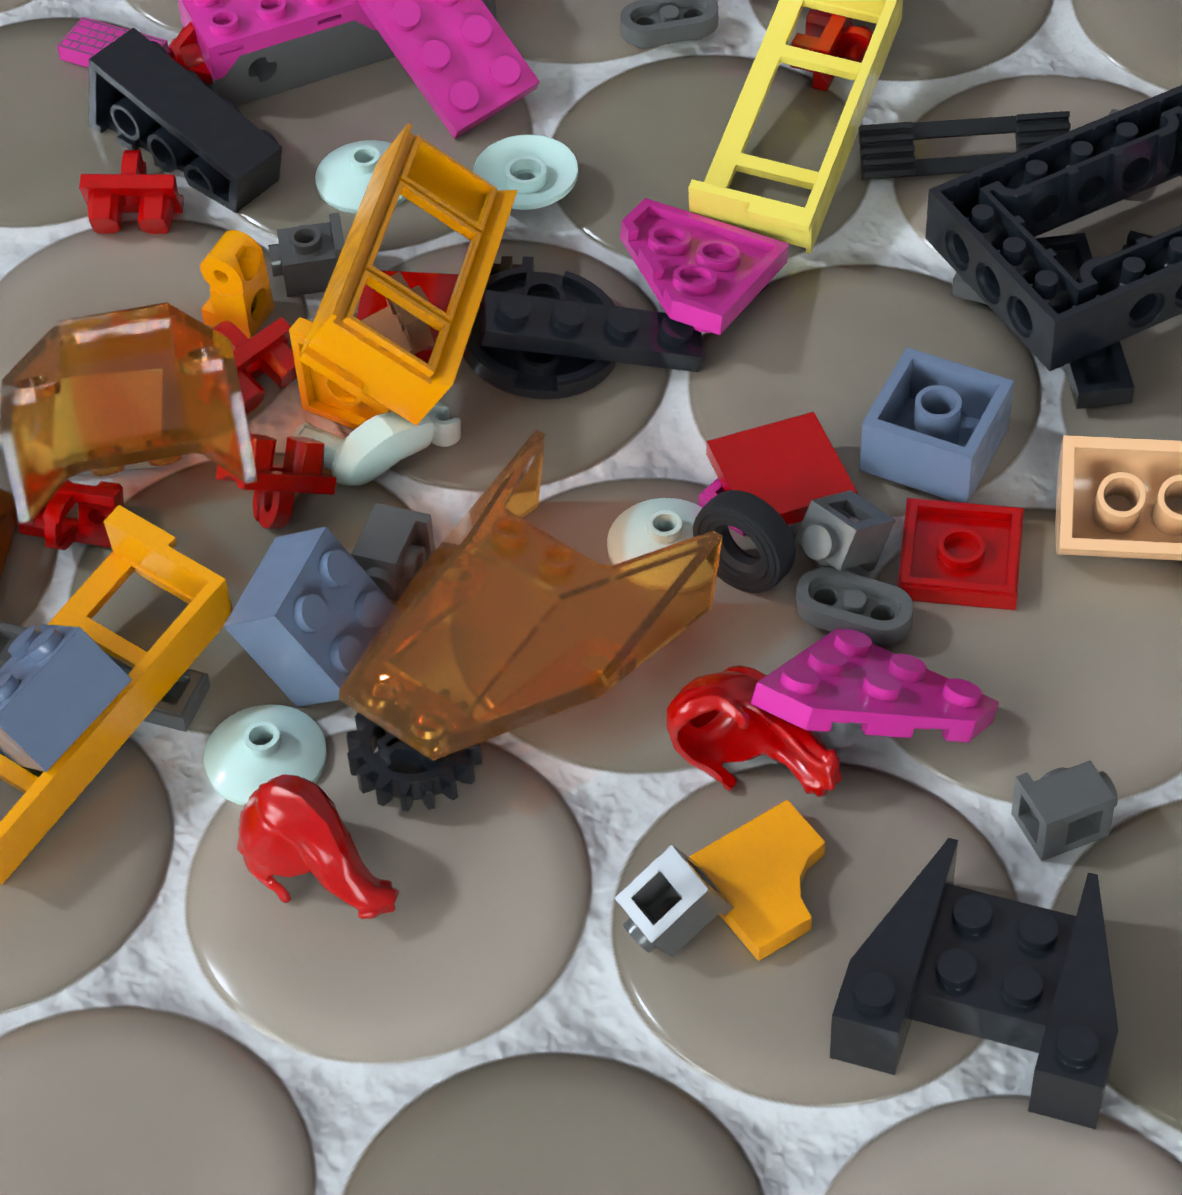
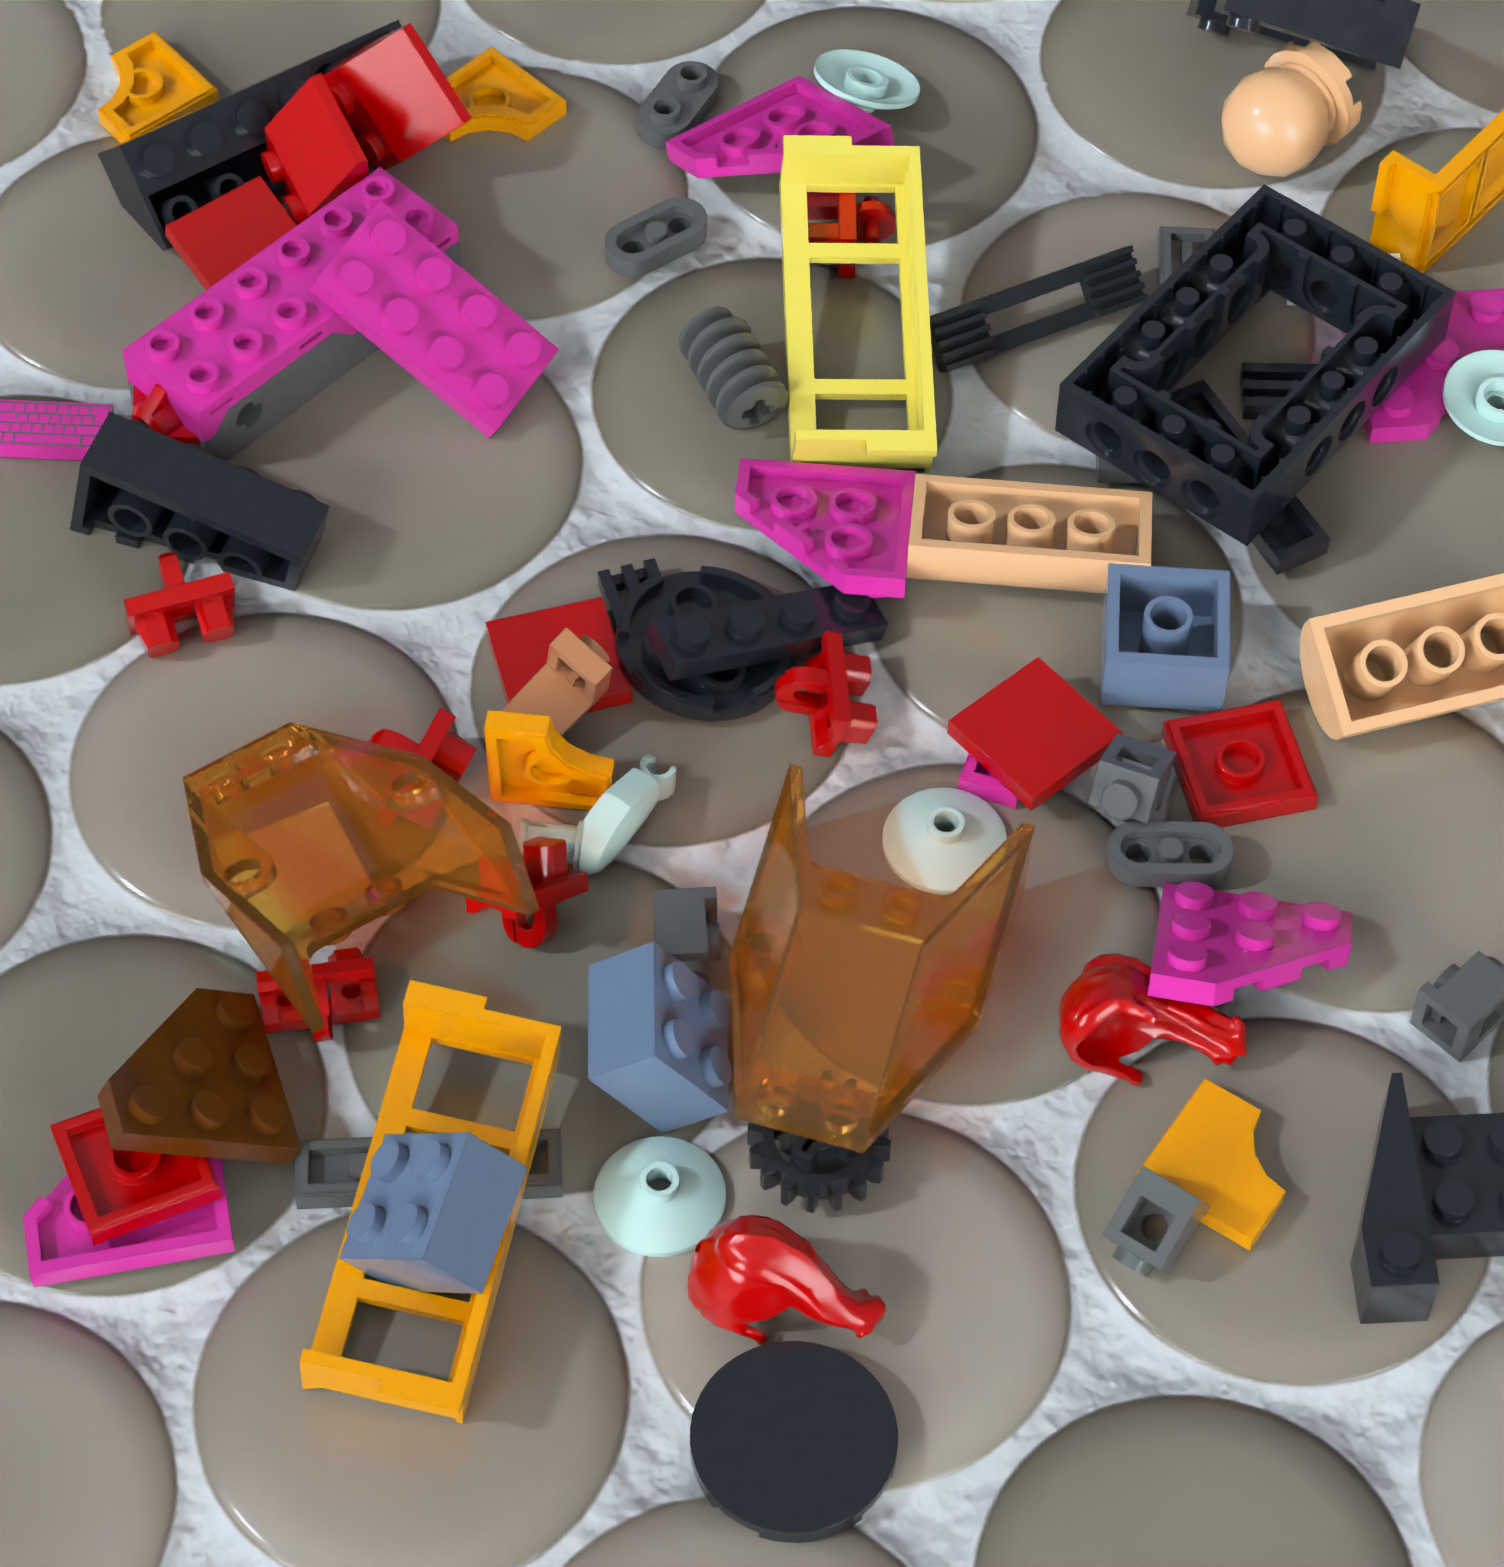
camera: 25 degrees left, 5 degrees up
(237, 283) = (363, 682): light orange leg -> none
(262, 988) = (793, 1441): none -> black tile
(307, 255) = (420, 624): dark grey brick -> none
(347, 172) = (418, 509): light aqua dish -> none
(359, 355) = (499, 516): light orange piece -> none
(533, 165) = (598, 461): light aqua dish -> none
(634, 382) = (827, 684): none -> red hips
(674, 129) = (732, 369): none -> dark grey piece
(764, 528) = (1049, 795): black tyre -> none
(853, 311) = (1025, 532): none -> light nougat brick

